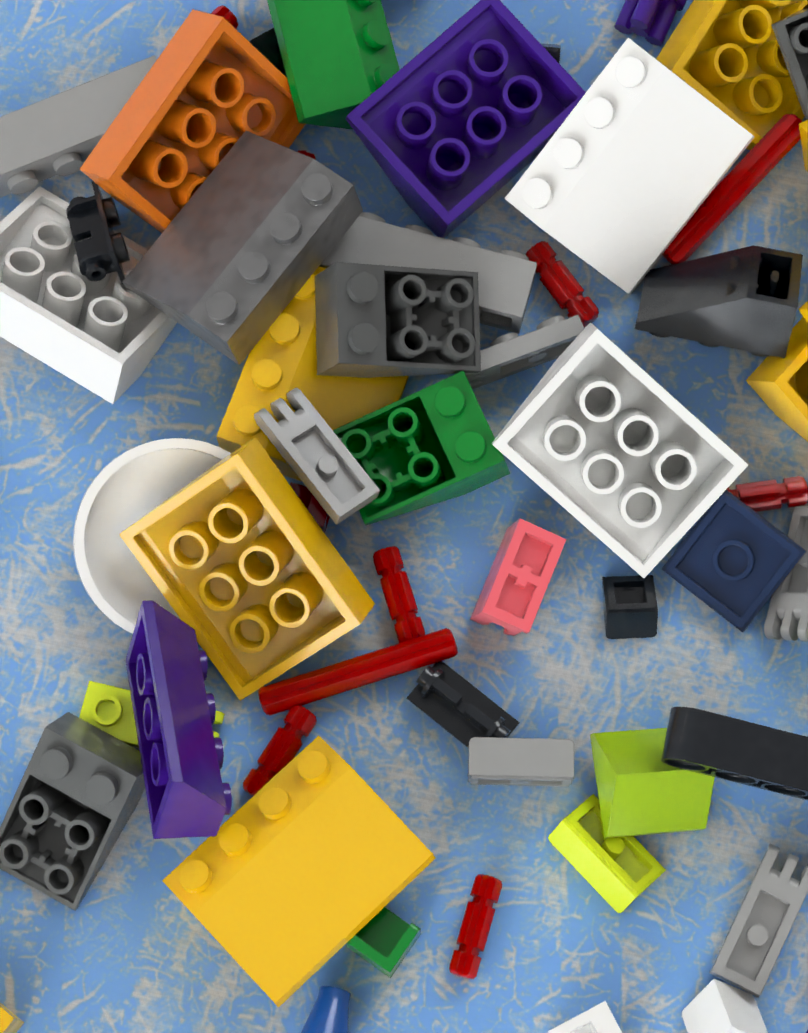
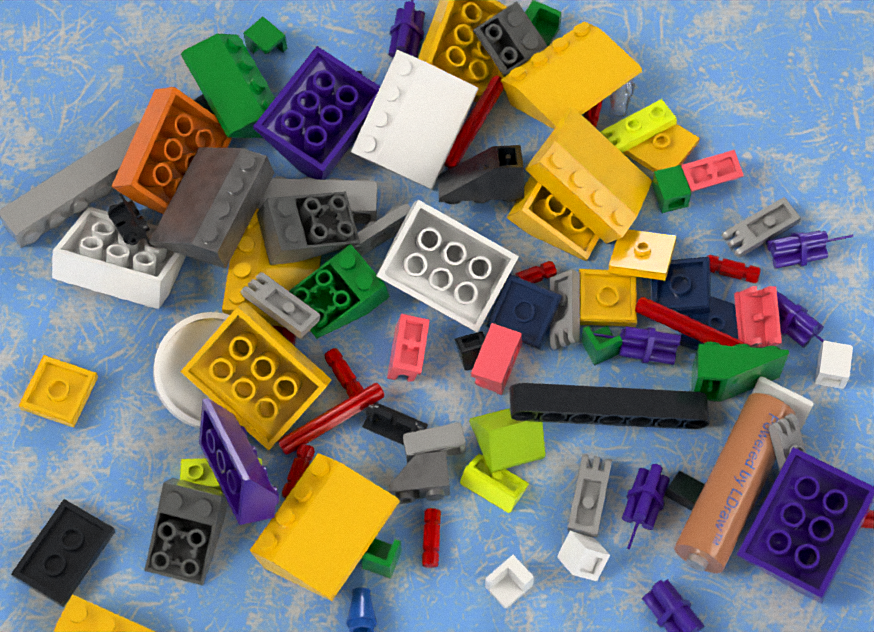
camera: 15 degrees left, 10 degrees down
(485, 817) = (422, 478): none -> flat silver slope
(562, 283) = (391, 190): red axle -> none
(665, 634) = (497, 358): none -> coral hinge

